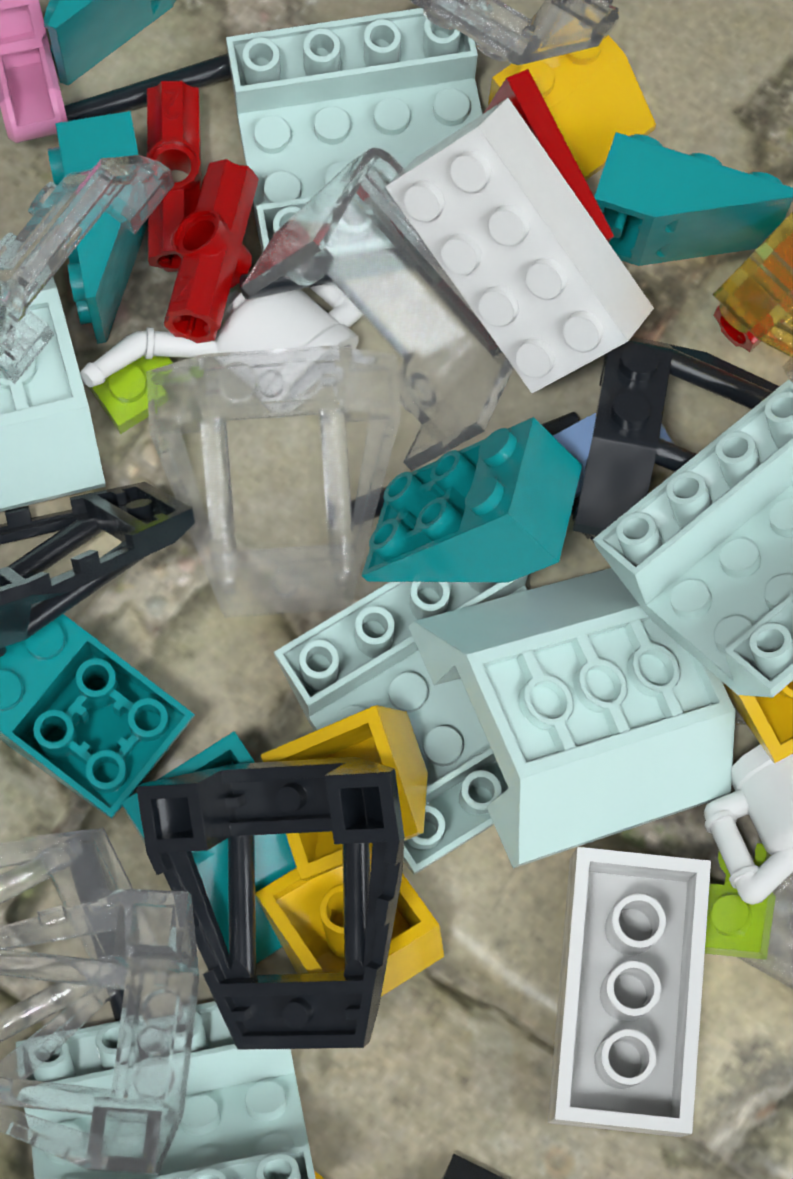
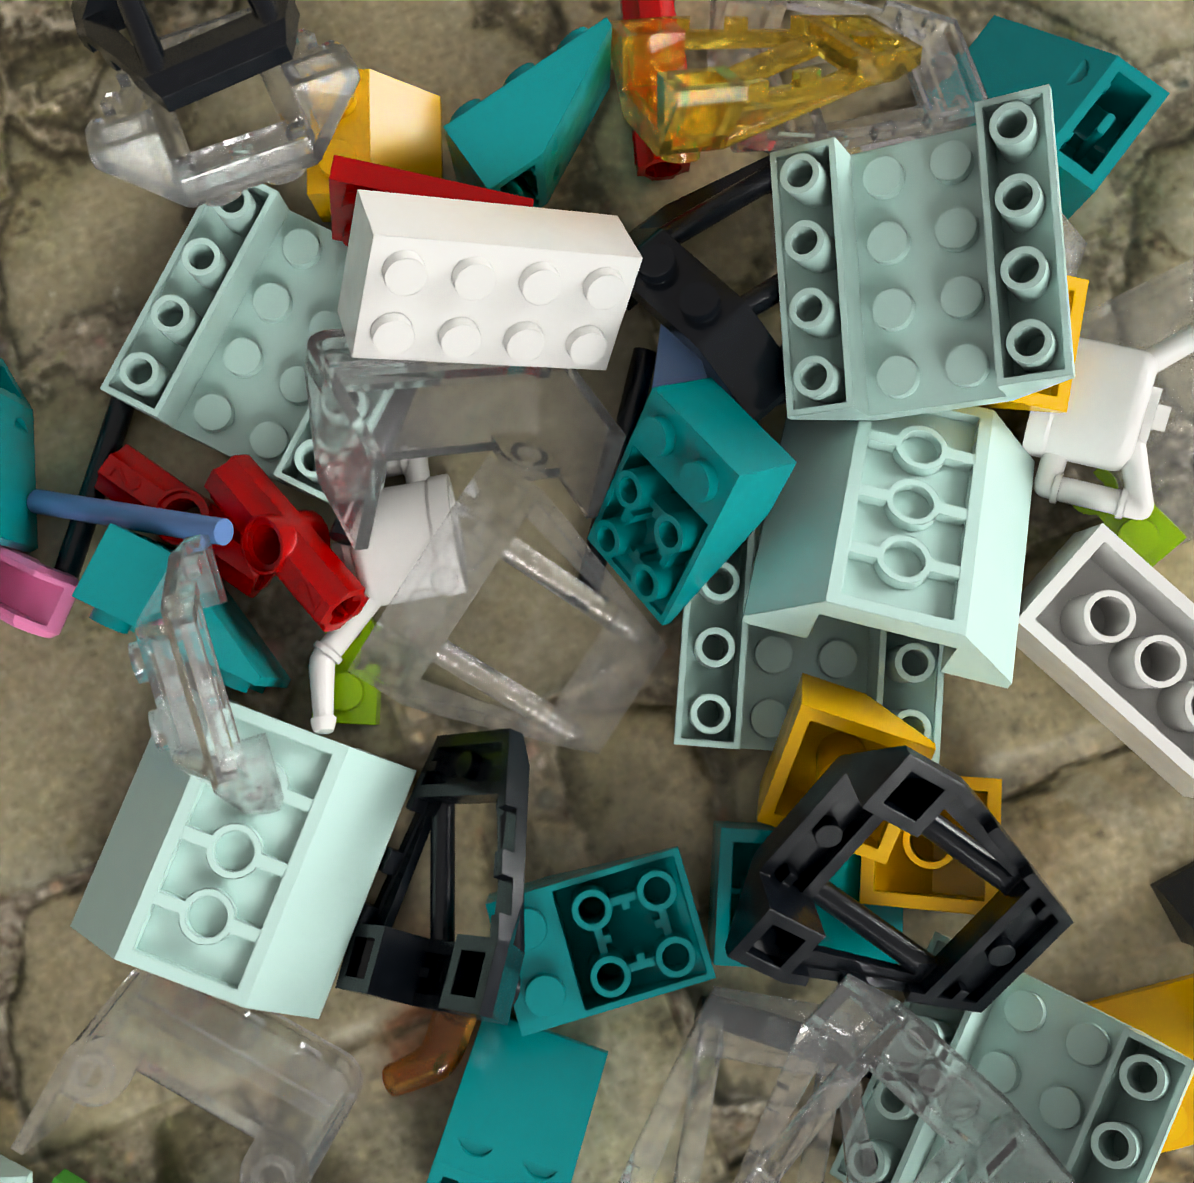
camera: 50 degrees left, 10 degrees up
(144, 124) = (130, 516): none -> medium blue bar

